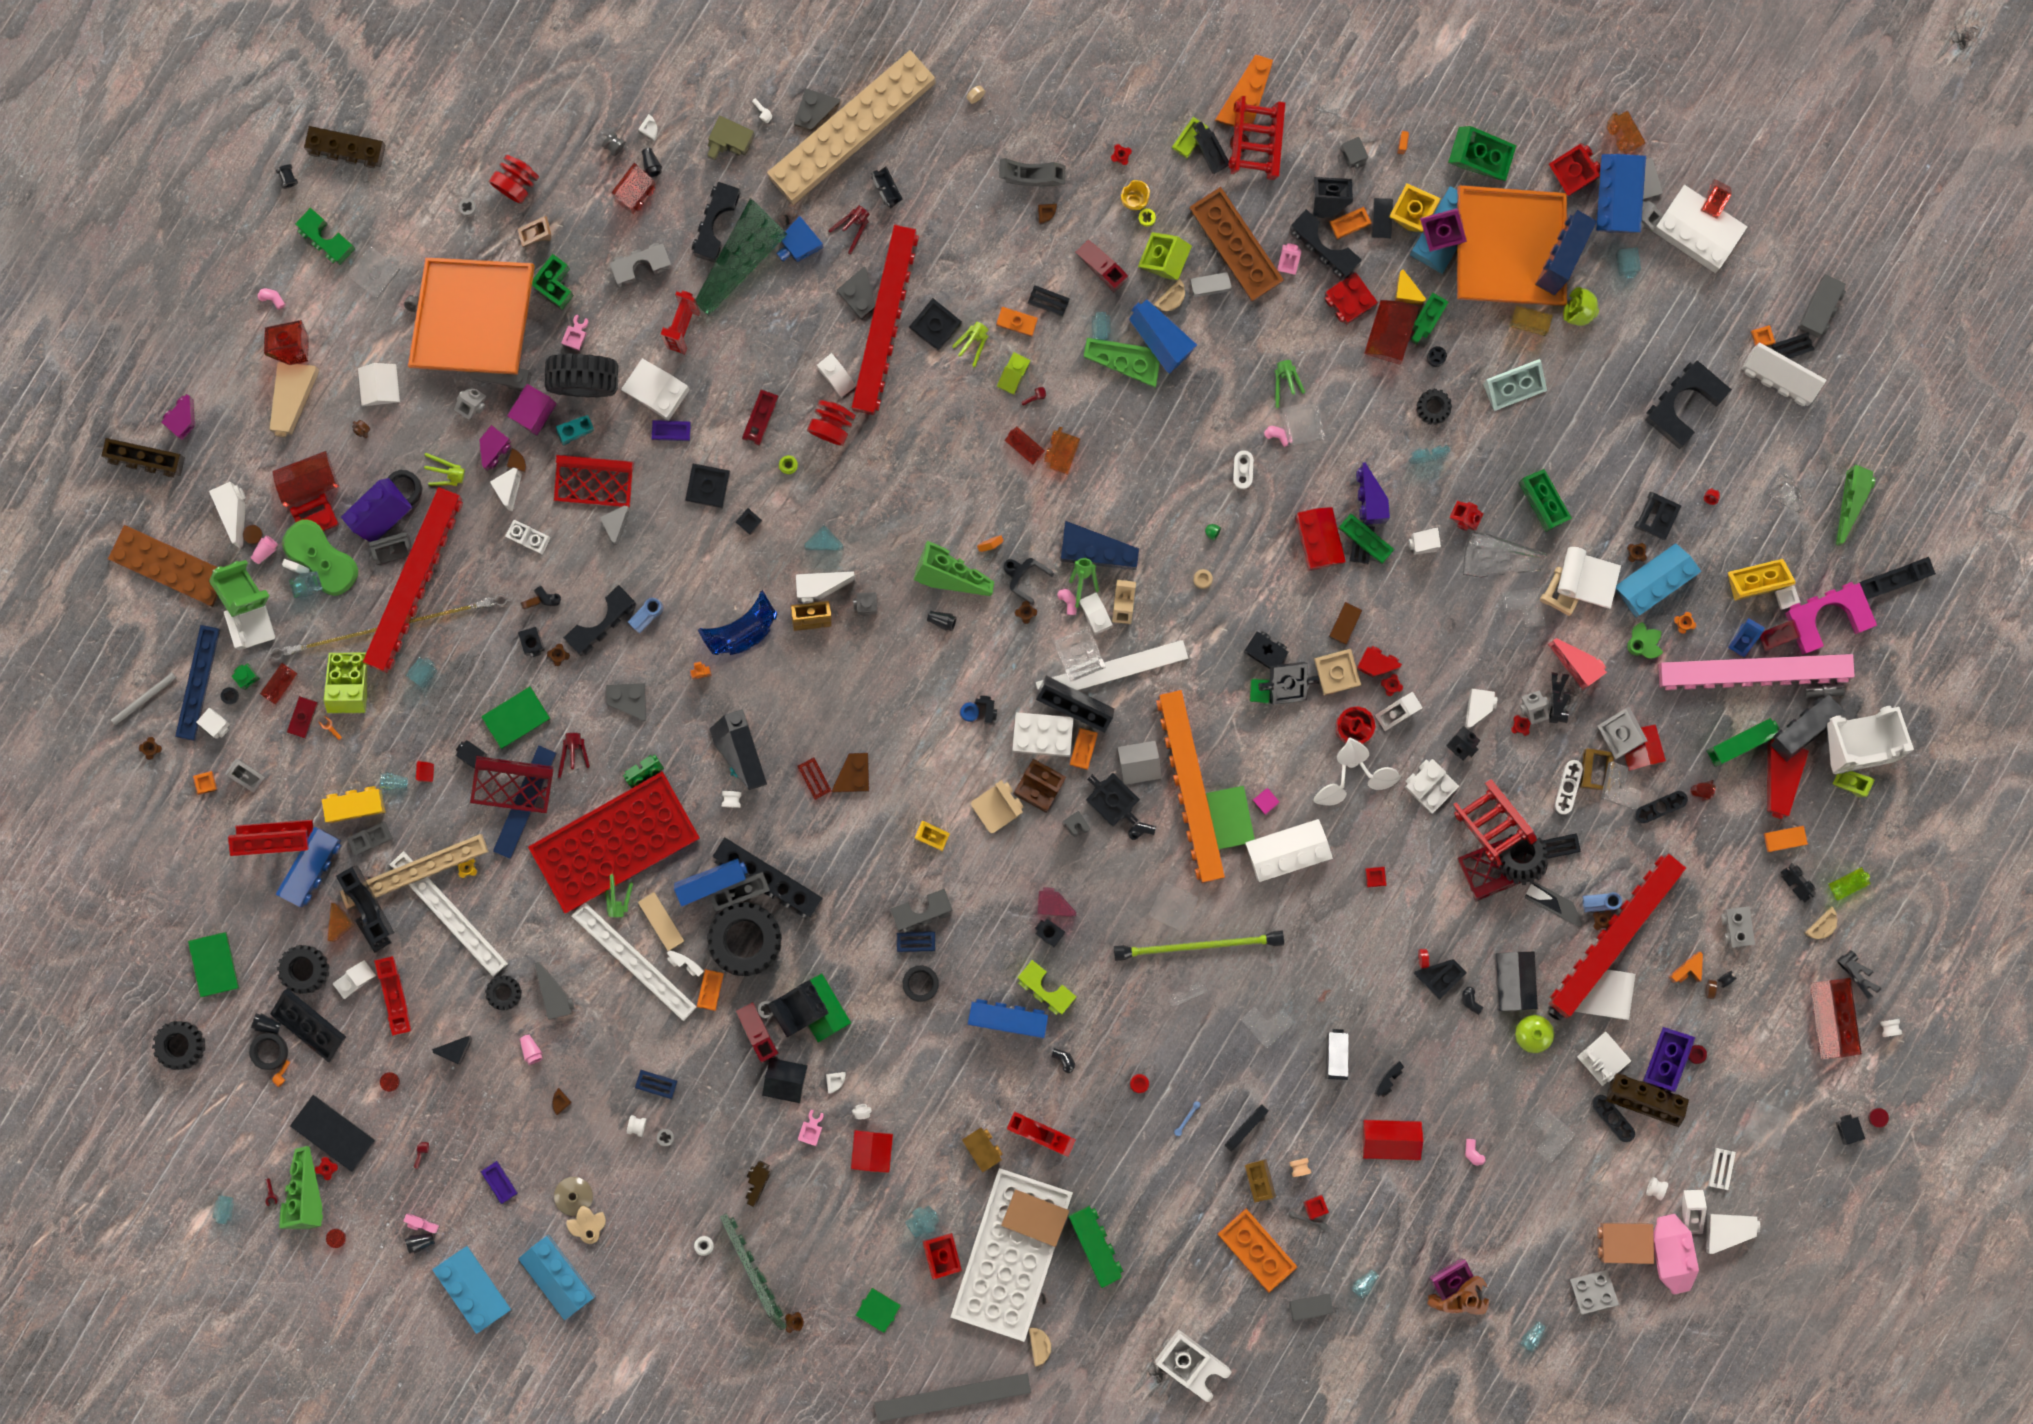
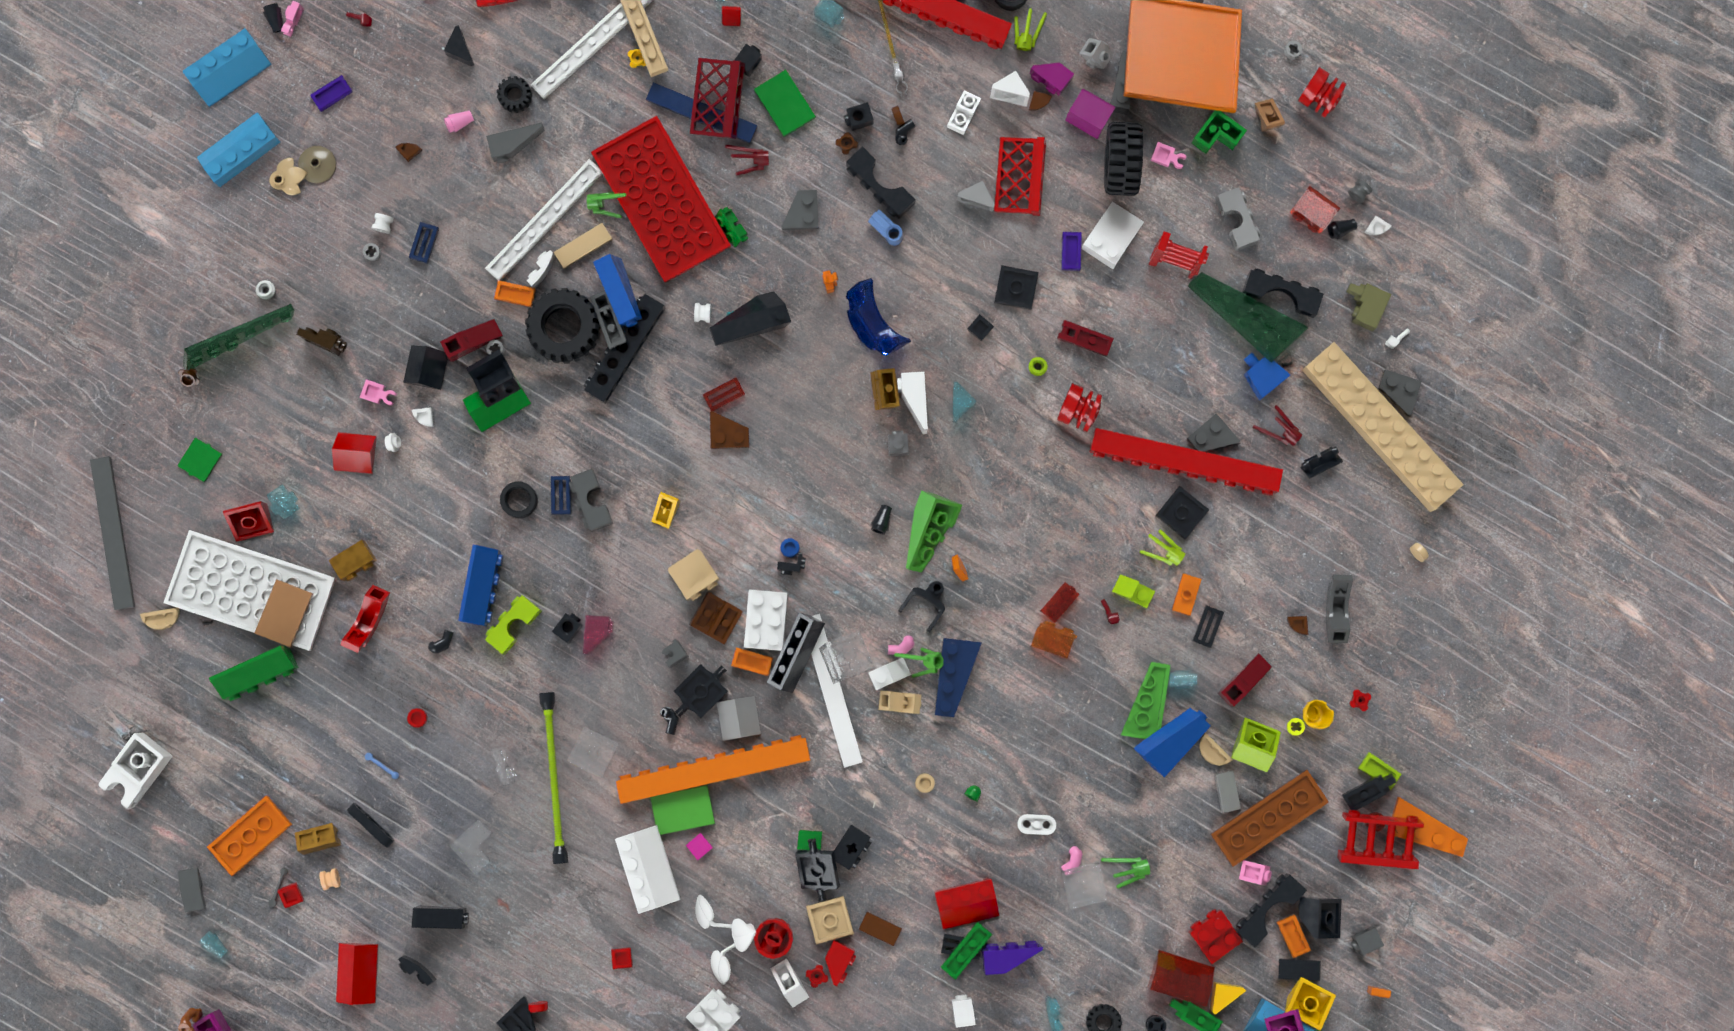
camera: 90 degrees right, 0 degrees up
(574, 429) = (1071, 156): teal leg -> none
(836, 375) = (1128, 413): white slope -> none
(1025, 617) = (895, 604): reddish brown plate -> none

